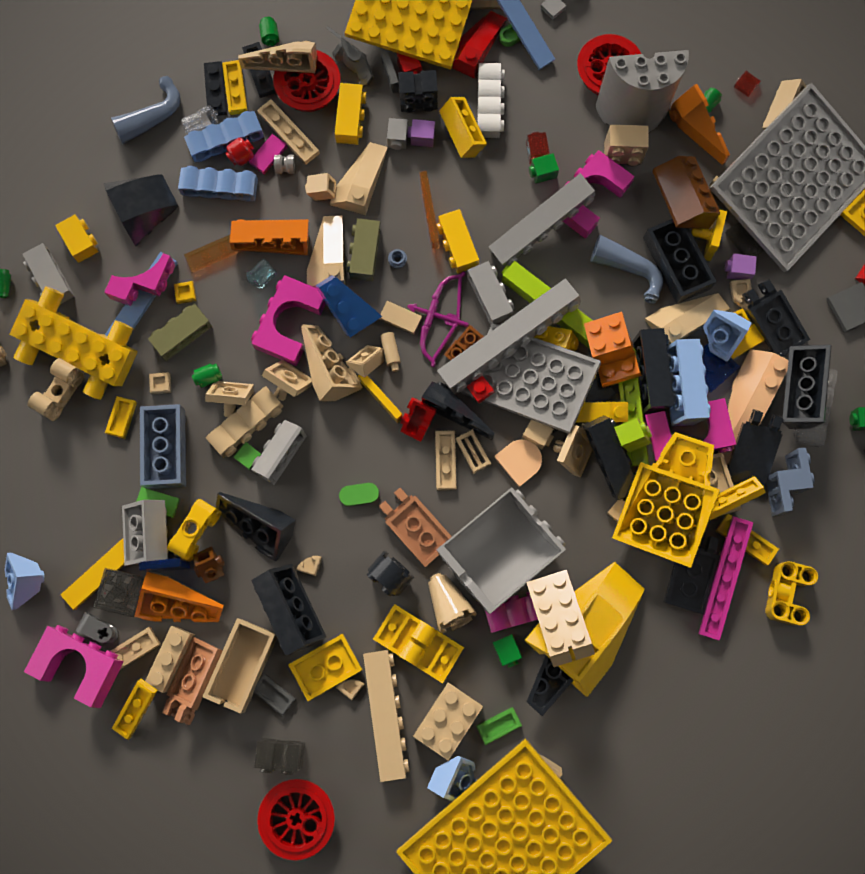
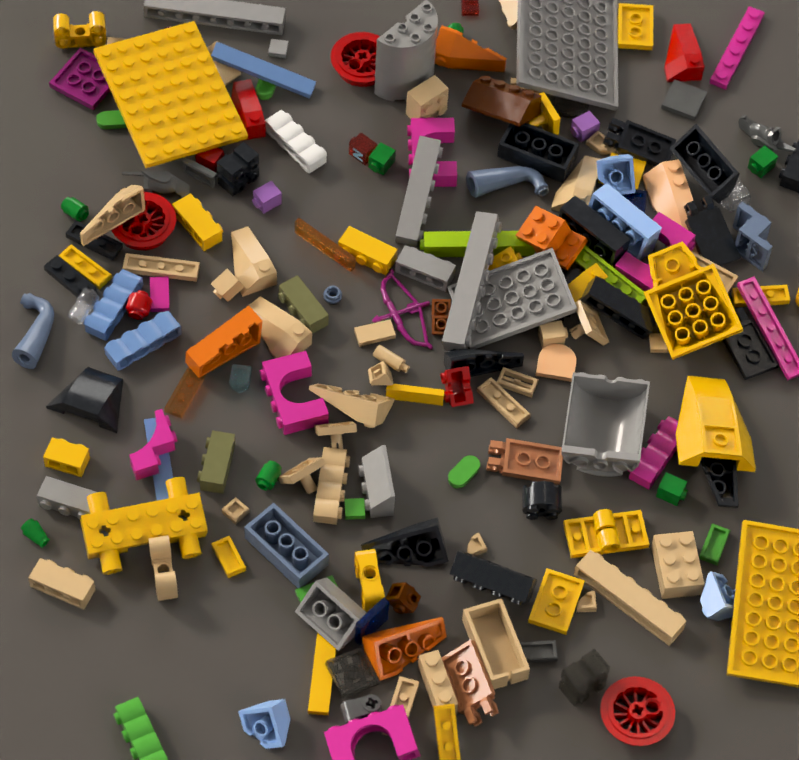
camera: 45 degrees left, 20 degrees down
(185, 292) = (191, 434): yellow tile -> none
(284, 164) = (182, 290): light grey wheel -> none
(347, 307) = (331, 347): blue wedge -> none
(397, 133) = (248, 210): light grey brick -> none
(449, 604) = (602, 488): tan cone -> none
(462, 127) = (295, 171): yellow brick -> none
(480, 389) = (484, 332): red plate -> none
(560, 618) = (690, 422): tan piece -> none
(633, 435) = (622, 277): lime brick -> none
(737, 496) = (729, 264): yellow plate -> none

